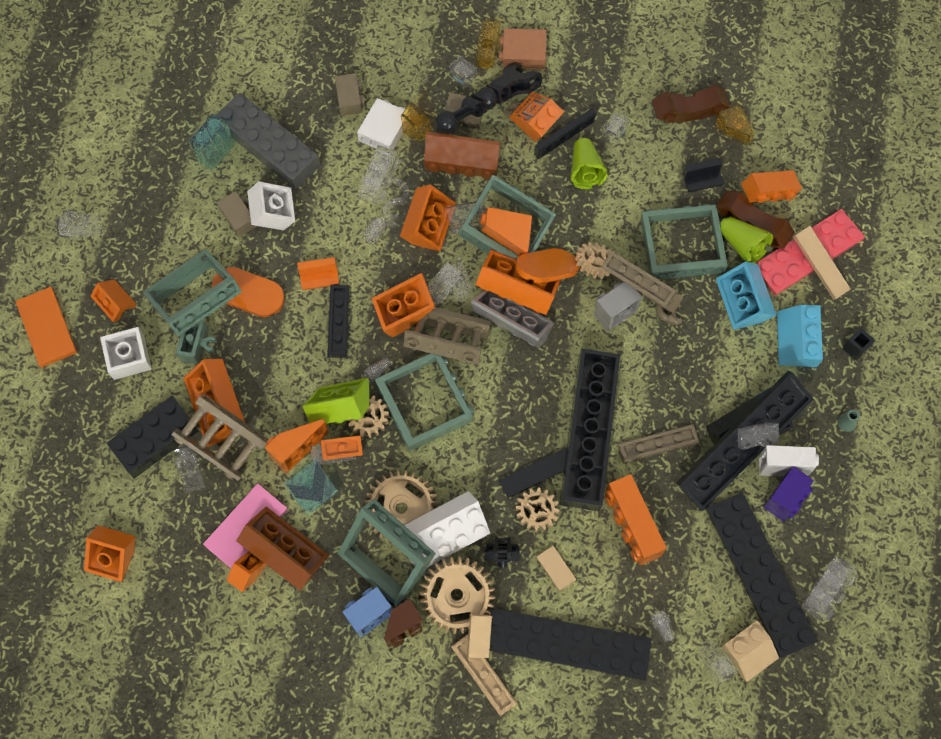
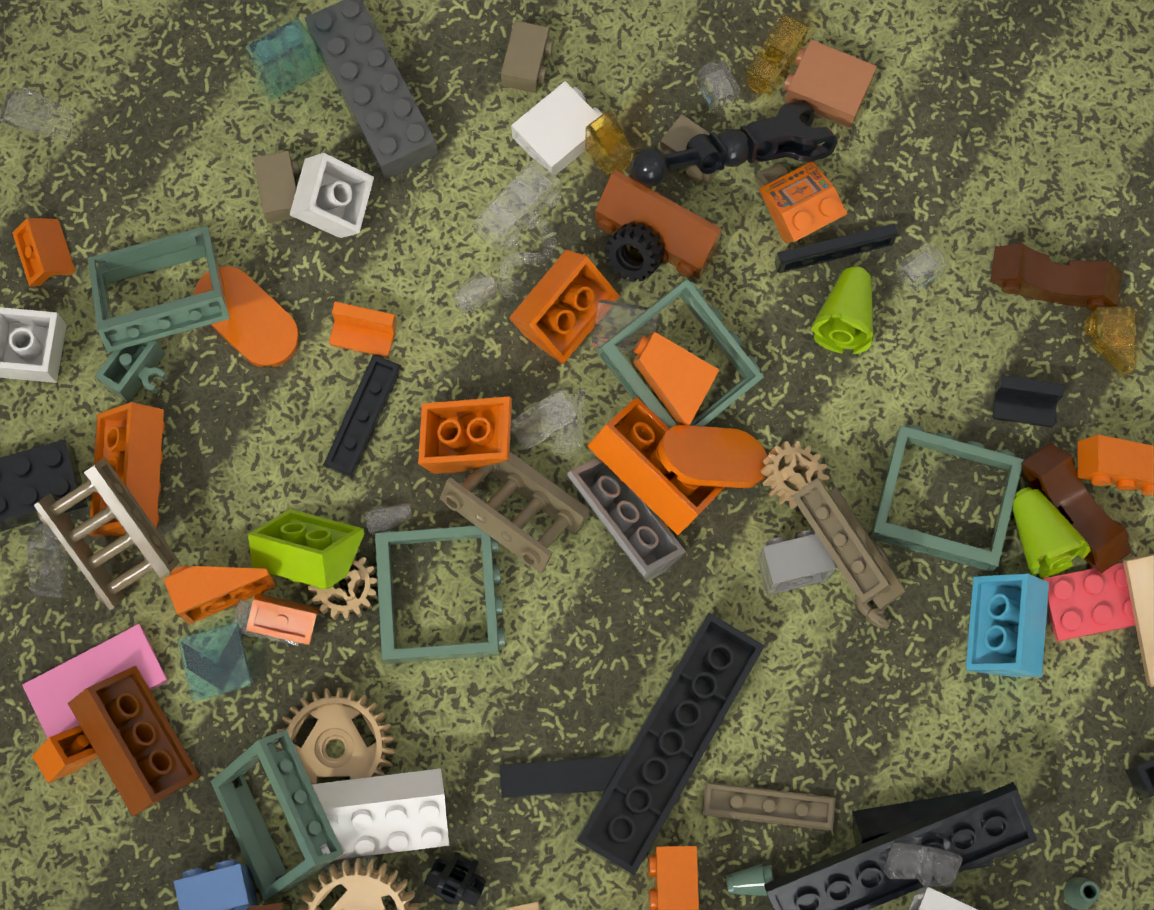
camera: 20 degrees right, 5 degrees up
(459, 165) = (642, 240): none -> black tyre
(545, 513) = (548, 826): tan gear -> none
(666, 486) = (750, 880): none -> sand green cone
(800, 336) = (1064, 725): medium azure slope -> none

